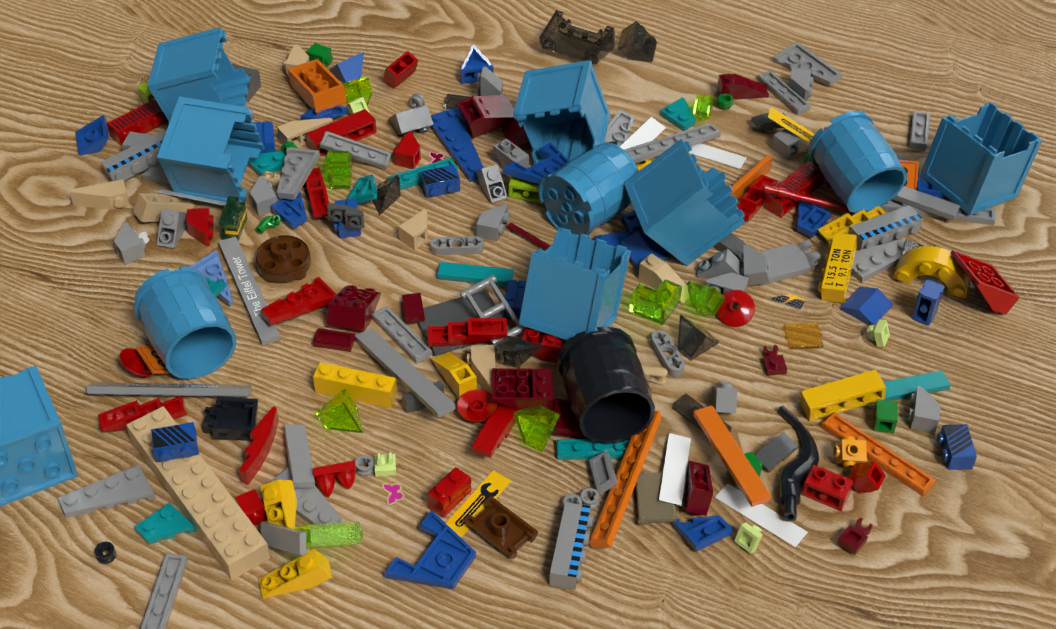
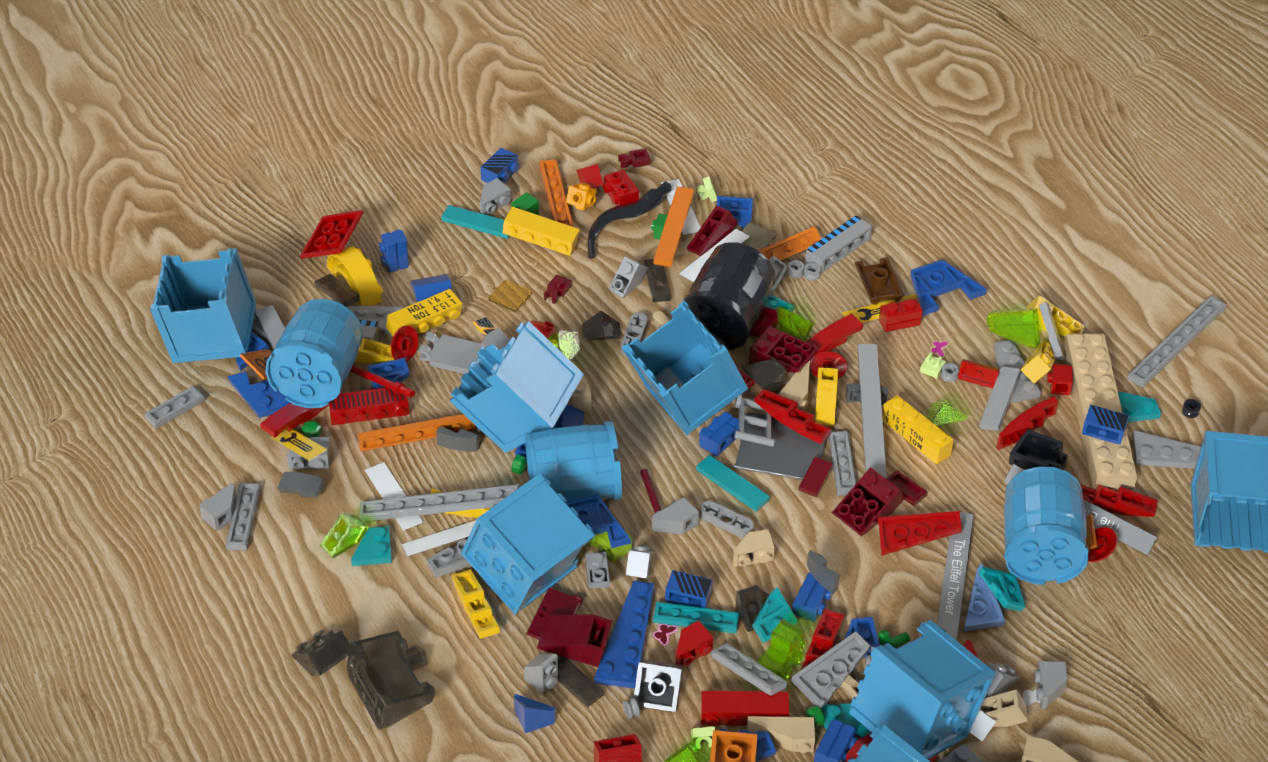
camera: 145 degrees left, 0 degrees up
(283, 259) = (904, 582): reddish brown piece -> none
(656, 304) = (605, 362): clear neon green brick -> none
(725, 101) = (315, 533): green tile -> none
(740, 87) = (284, 537): dark red slope -> none
(754, 198) = (419, 413): red slope -> none
(776, 451) = (626, 226): dark grey slope -> none
(800, 57) = (180, 531): light grey wing -> none
(823, 235) = (404, 343): none -> red dish
(879, 333) = (454, 259): yellowish green tile -> none

